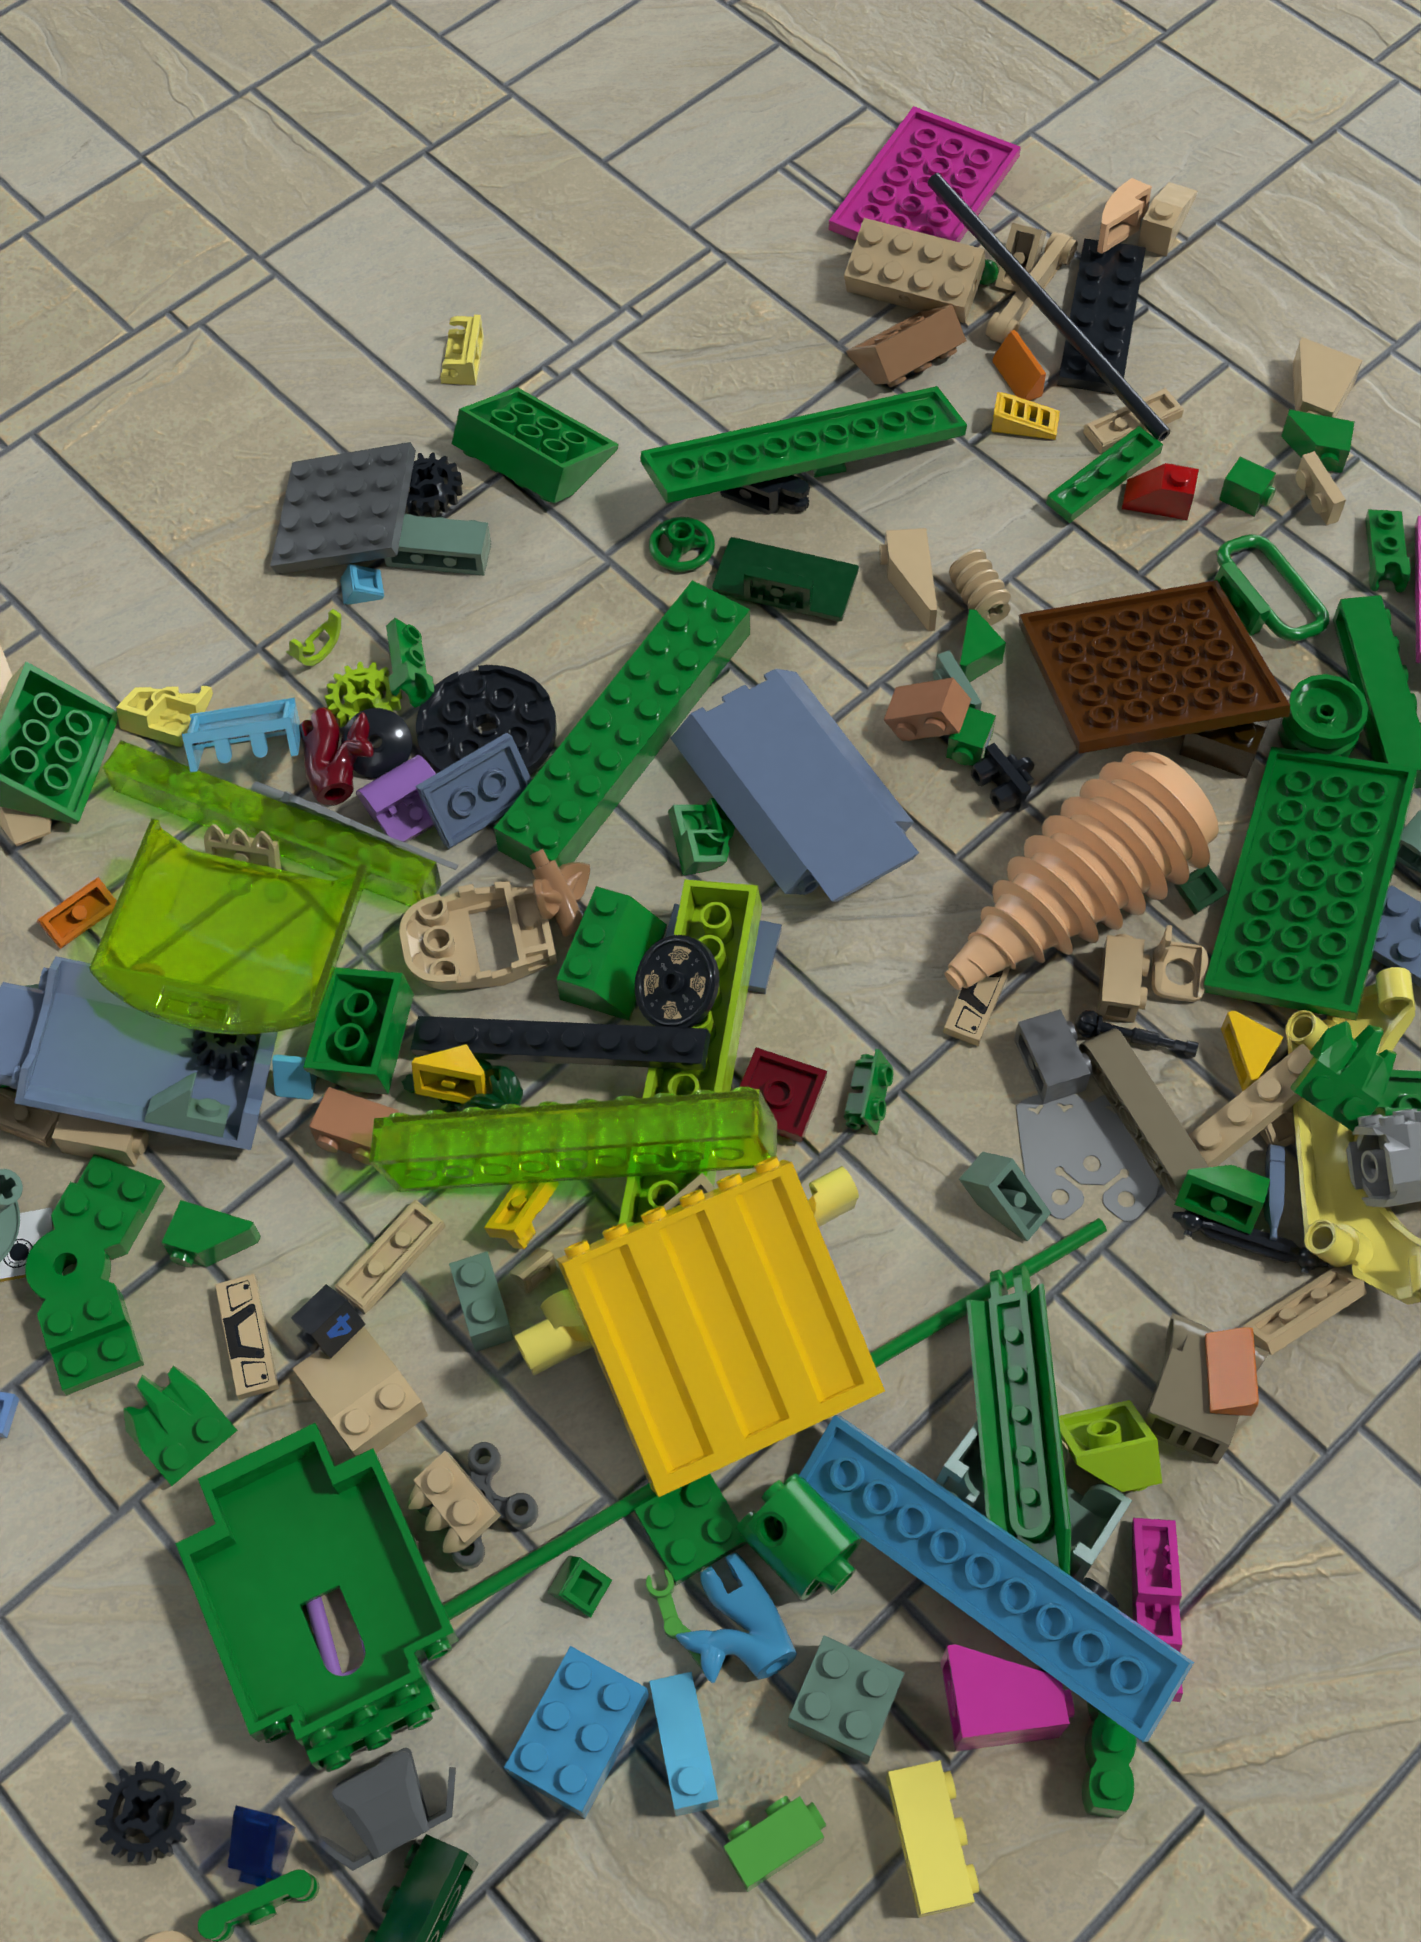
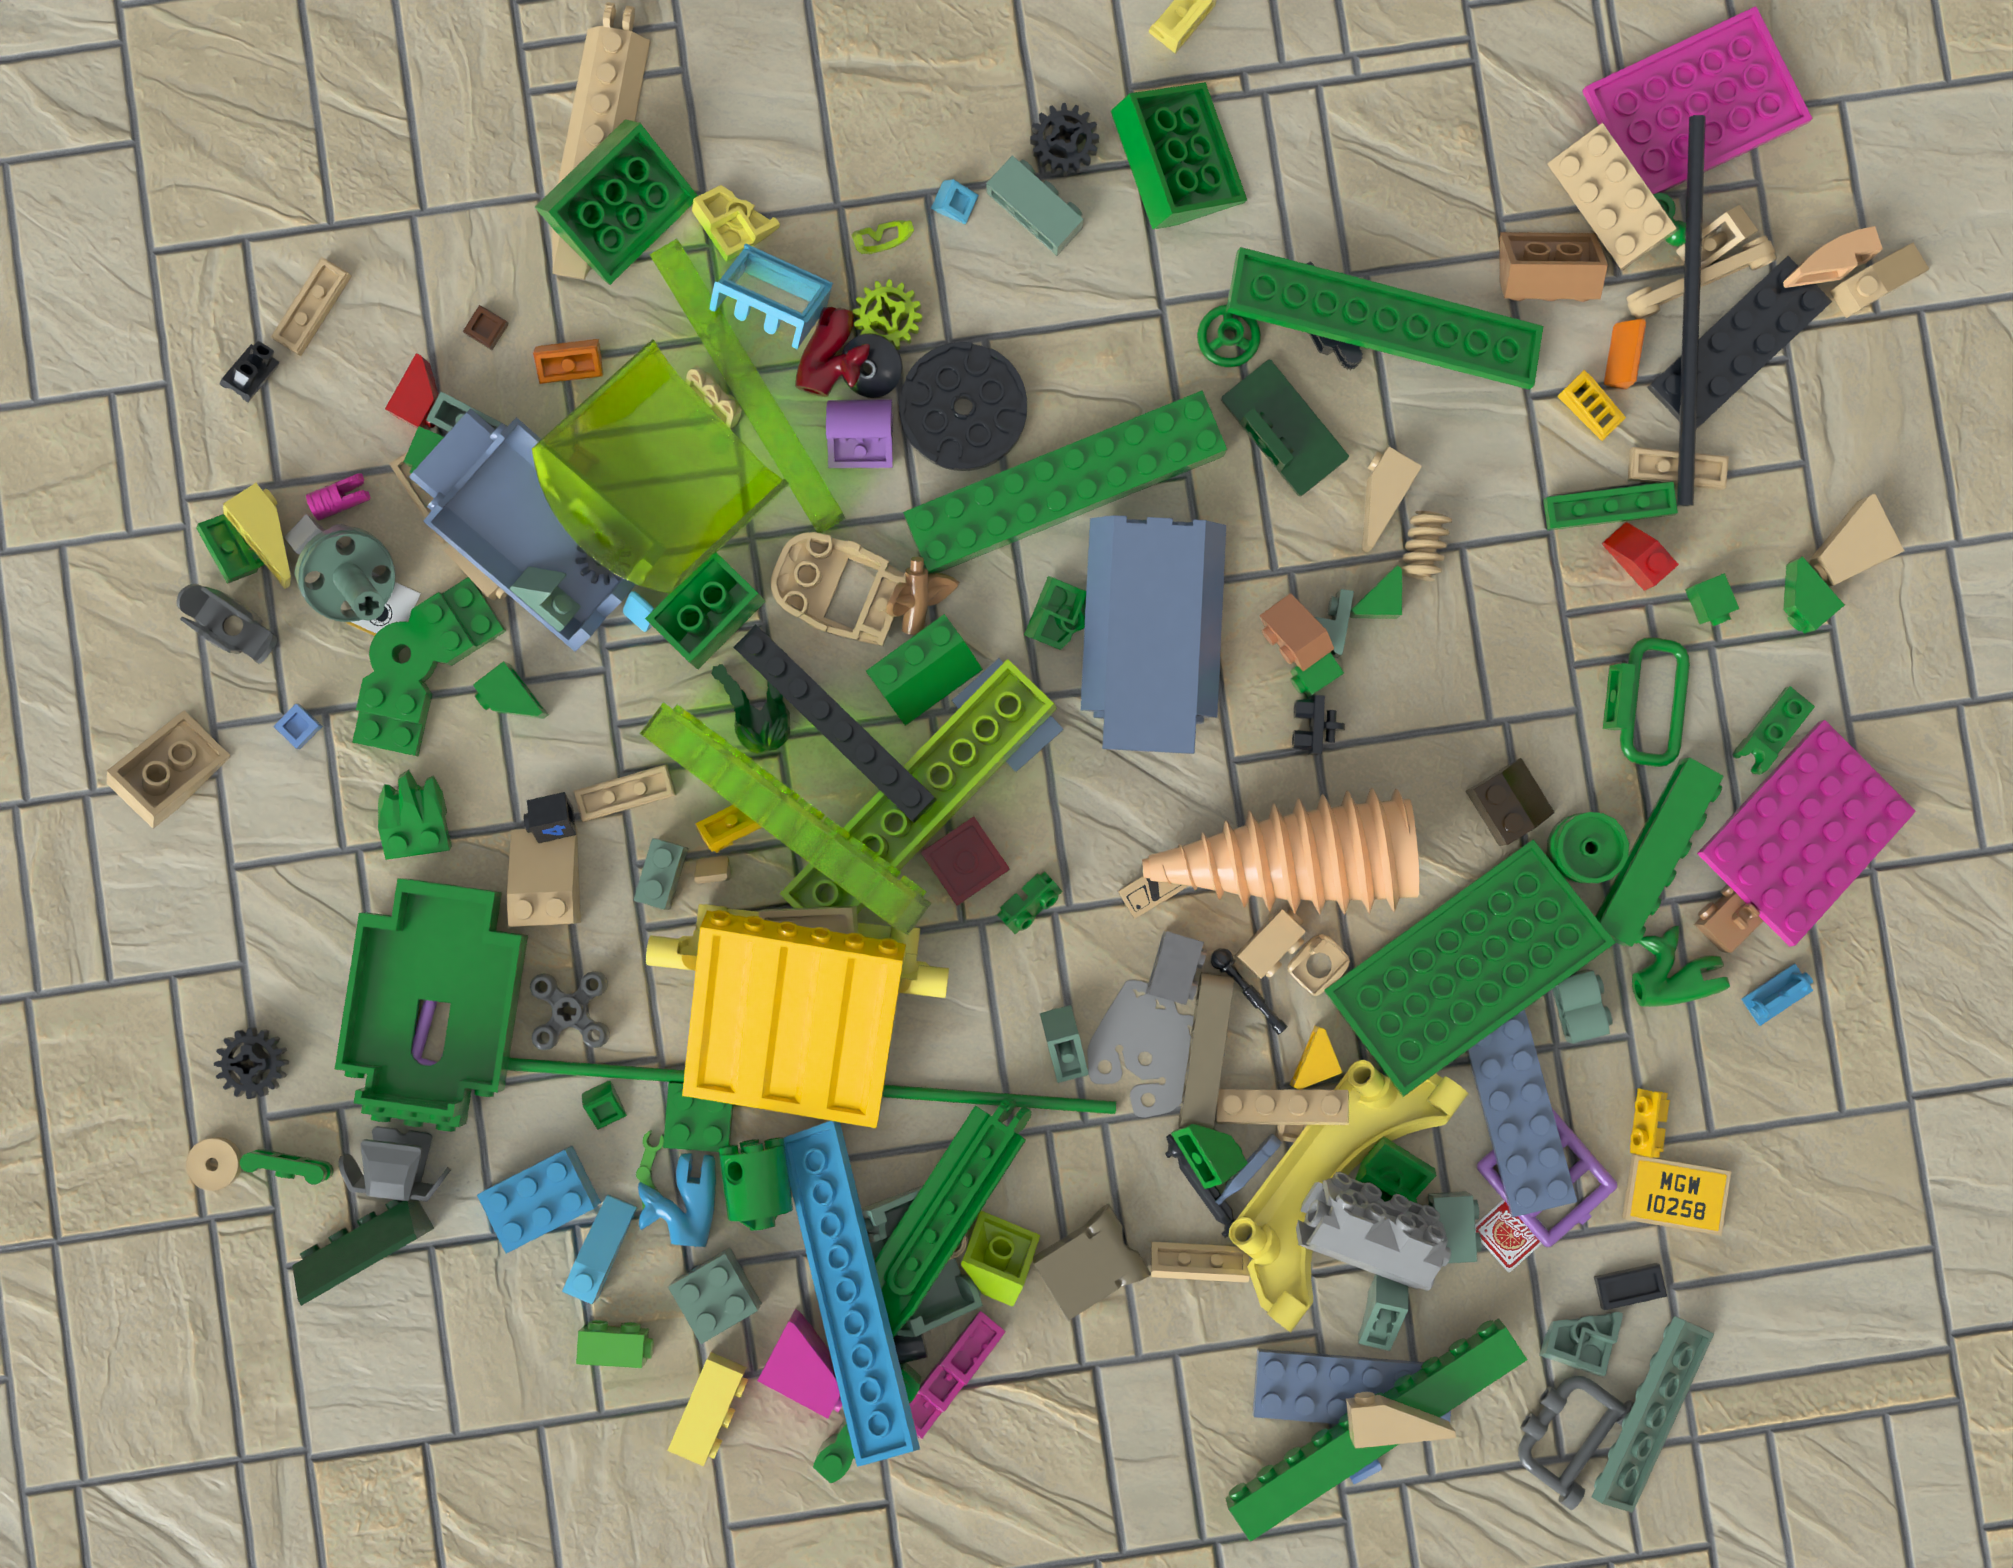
camera: 30 degrees right, 25 degrees up
(246, 1336) = (495, 785): tan tile -> none
(258, 1845) = (306, 1133): clear blue slope -> none
(320, 811) = (791, 412): light grey piece -> none
(344, 508) = (982, 121): dark grey plate -> none
(347, 1123) = (657, 680): nougat brick -> none
(408, 663) = (938, 310): green plate -> none
(449, 1075) = (744, 694): yellow slope -> none
(454, 1502) = (551, 1006): tan plate -> none
(475, 790) = (914, 466): sand blue tile -> none
(677, 982) = (938, 746): black shield -> none
(1151, 666) = (1494, 714): reddish brown plate -> none
(1201, 889) = (1383, 918): dark green plate -> none
(1231, 1371) = (1107, 1277): orange slope -> none
(1320, 488) = (1770, 630): tan plate -> none
(1346, 1074) = (1355, 1136): green plate -> none

